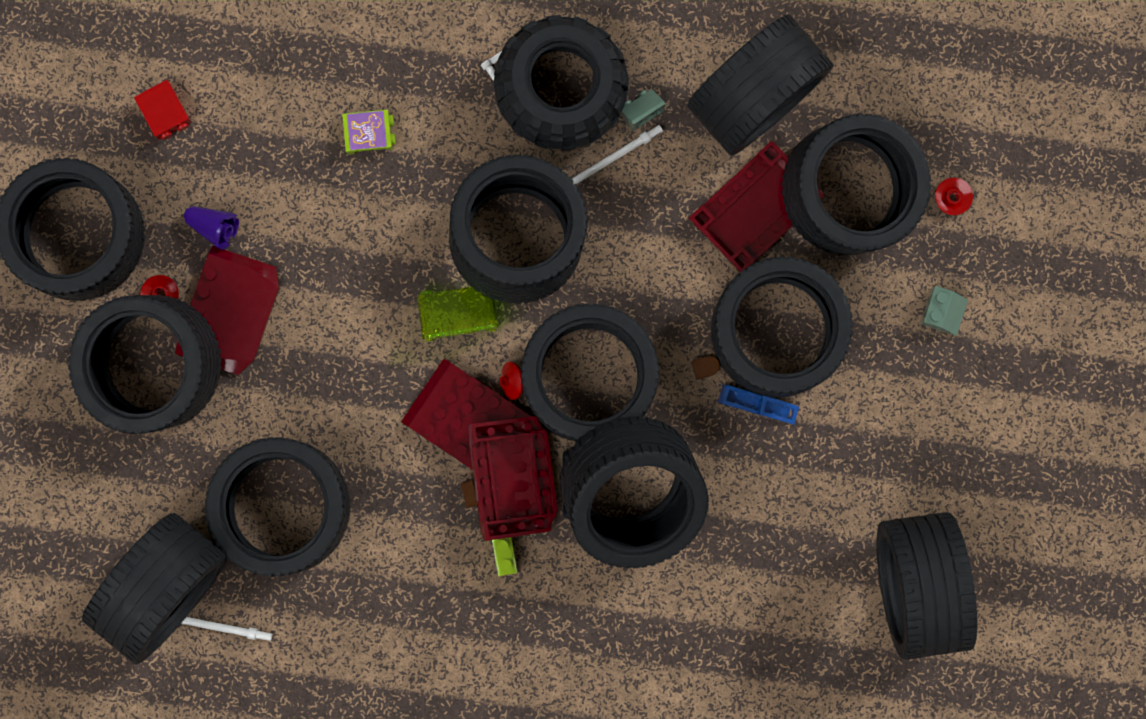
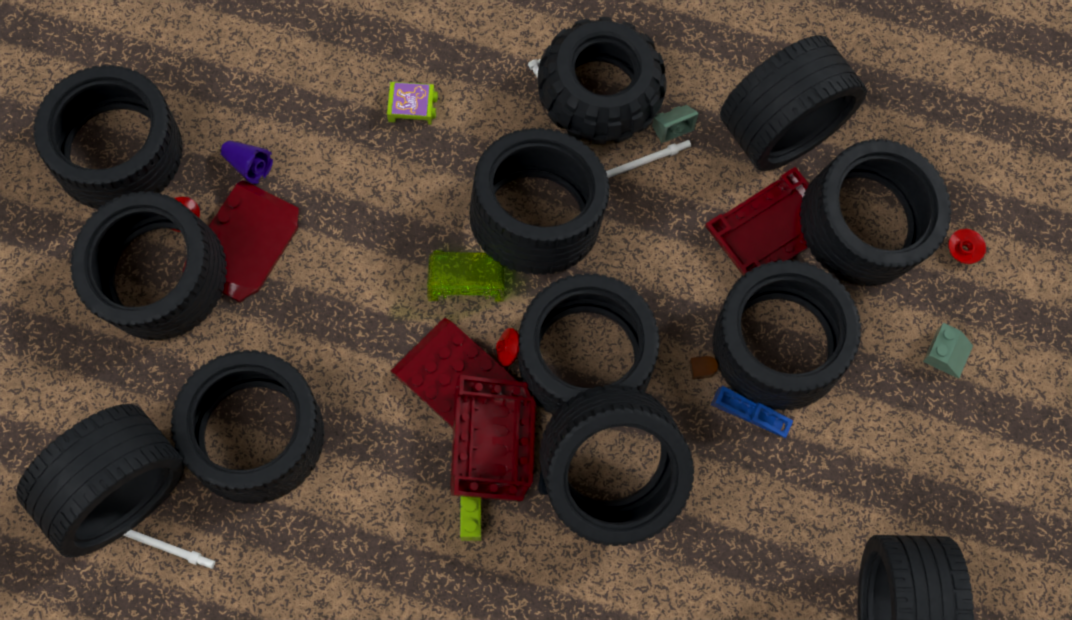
camera: 10 degrees right, 15 degrees down
(163, 110) = (224, 55): red brick -> none
(469, 493) = (445, 450): reddish brown piece -> none

